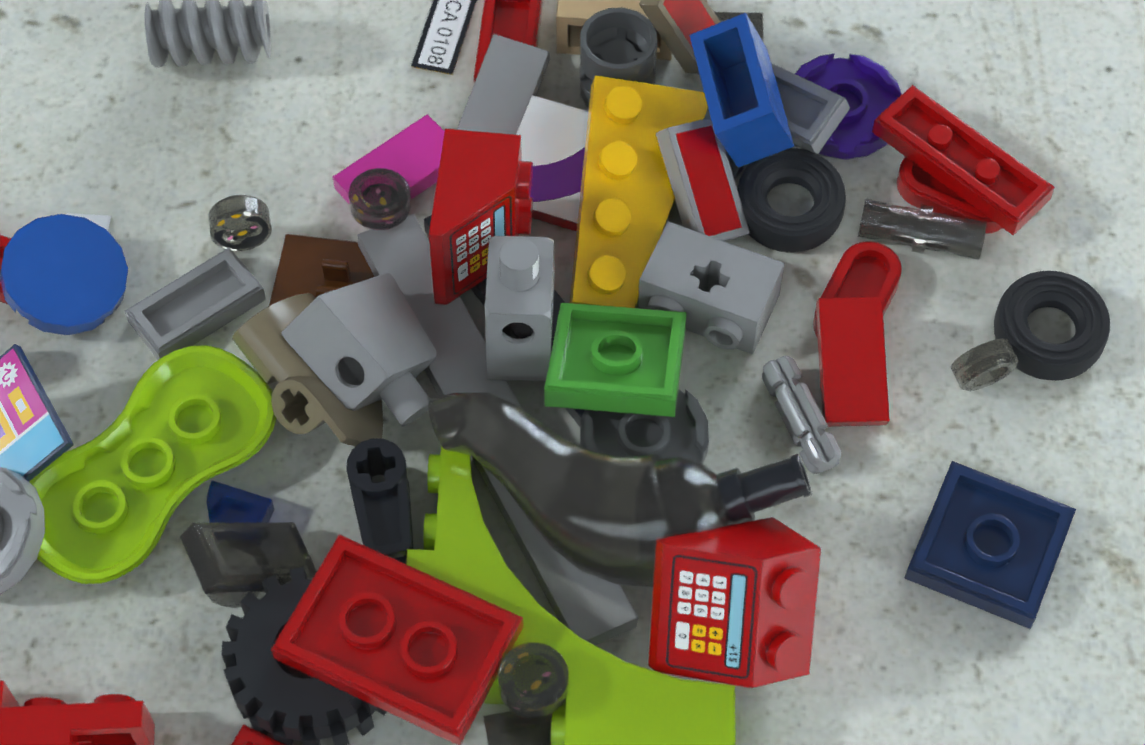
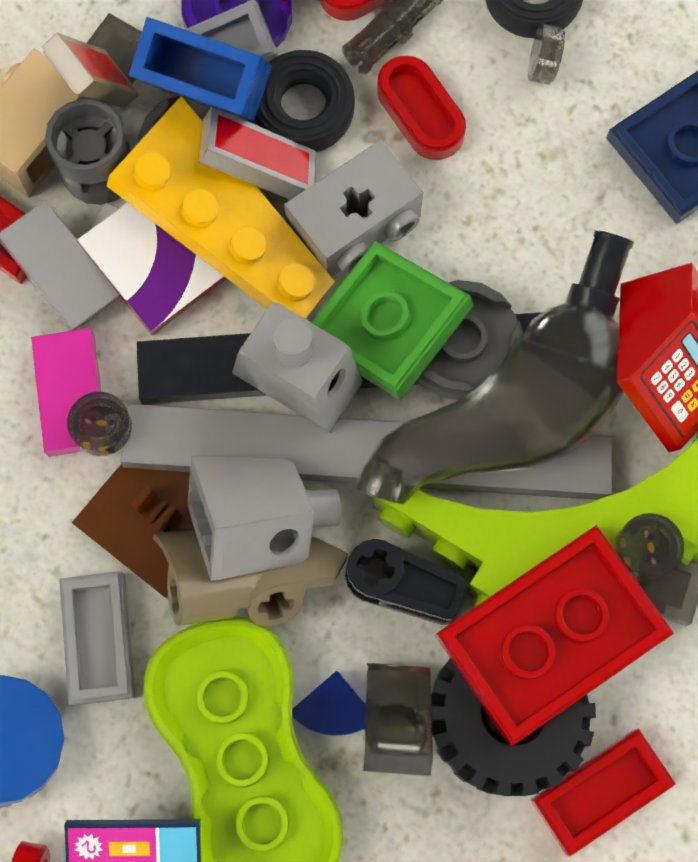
camera: 60 degrees left, 15 degrees up
(239, 222) = (42, 556): clear smoke tile -> none
(478, 195) = (180, 345): red slope -> none
(801, 415) = (503, 212): light grey axle -> none
(852, 361) = (486, 145): red tile -> none

